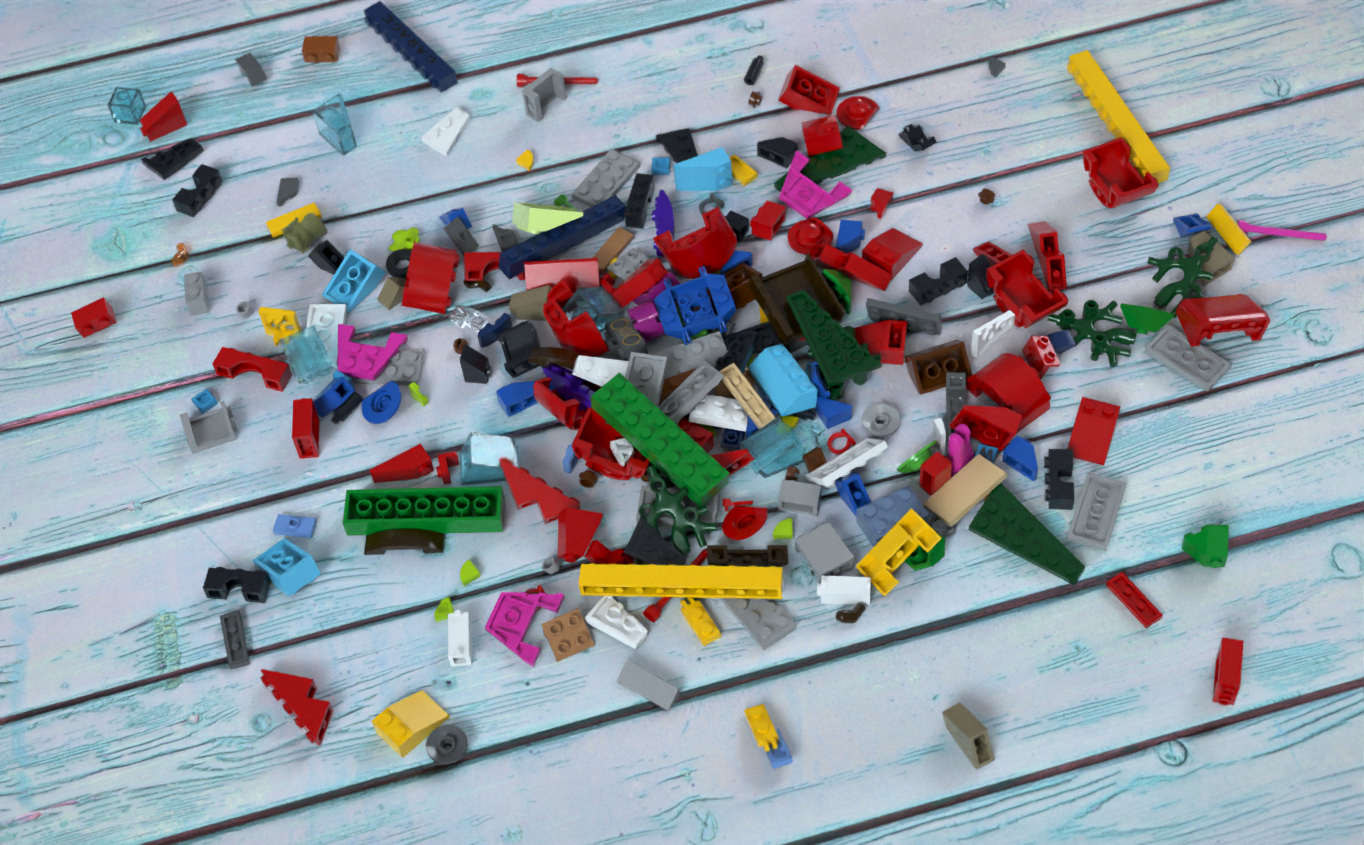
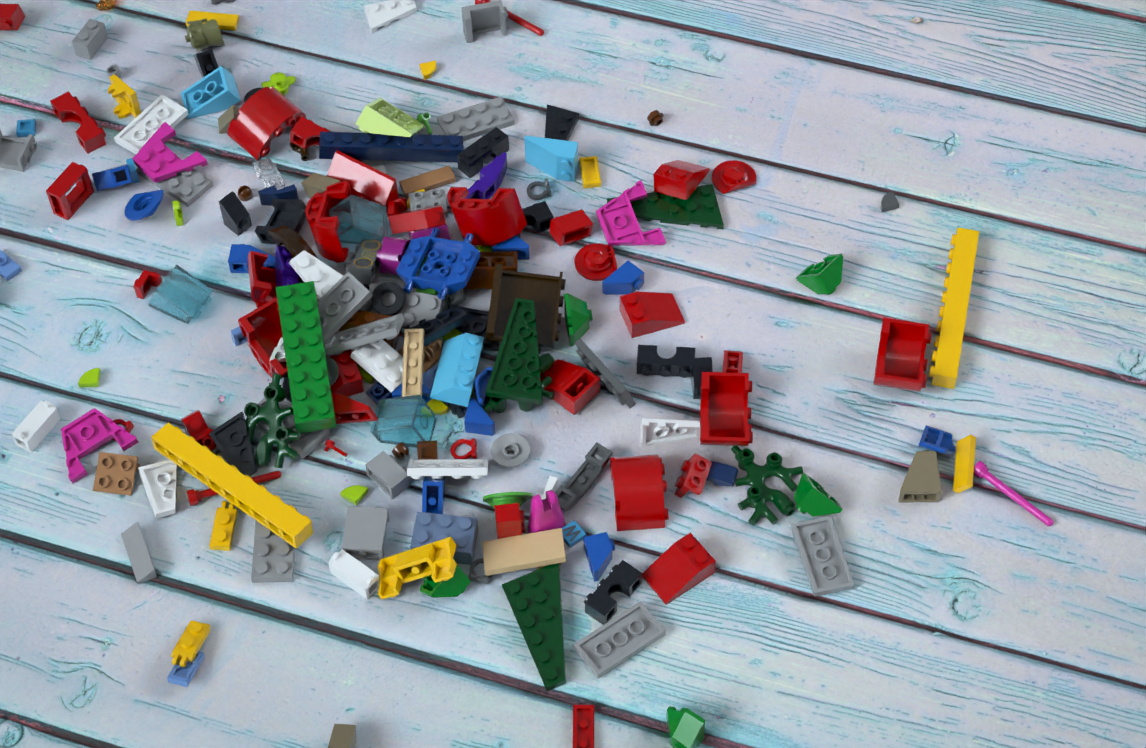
camera: 30 degrees right, 0 degrees up
(306, 355) = (118, 132): clear light blue slope -> none
(347, 407) = (118, 193): black cylinder -> none
(404, 540) = (68, 324): dark brown slope -> none
(405, 466) = (120, 265): red slope -> none
(425, 509) = (98, 308): green brick -> none
(443, 609) = (50, 395): lime tile -> none
(452, 214) = (327, 90): blue slope -> none
(460, 236) = (318, 103): dark grey plate -> none
(505, 238) = (351, 126): dark grey tile -> none
(530, 490) = (182, 339): red slope -> none
(551, 565) = (153, 411): light grey hinge -> none
(575, 532) = (191, 395): red slope -> none
(588, 479) = (242, 358): reddish brown plate -> none
(660, 166) = (529, 130): dark azure tile -> none
(688, 354) = (383, 288): none -> black tyre
(744, 521) = (325, 467): red hat -> none
(754, 70) = (677, 93): black cylinder -> none
(774, 556) = (301, 498): dark brown slope -> none
(777, 150) = (634, 171): black slope -> none
(808, 92) = (704, 136): red slope -> none
(850, 265) = (602, 306): red slope -> none
(850, 616) = (341, 598): dark brown arm -> none
(880, 201) = (681, 263): red slope -> none
(915, 138) = (761, 226): black slope -> none
(930, 365) = (606, 429): reddish brown slope -> none
(986, 196) = (775, 311): reddish brown plate -> none
(989, 424) = (588, 507): red slope -> none
(999, 148) = (824, 276): none -> green slope
(1049, 256) = (779, 393): red slope -> none
(1192, 271) = (874, 491): dark green plant -> none
(1221, 314) = (880, 536): red windscreen -> none

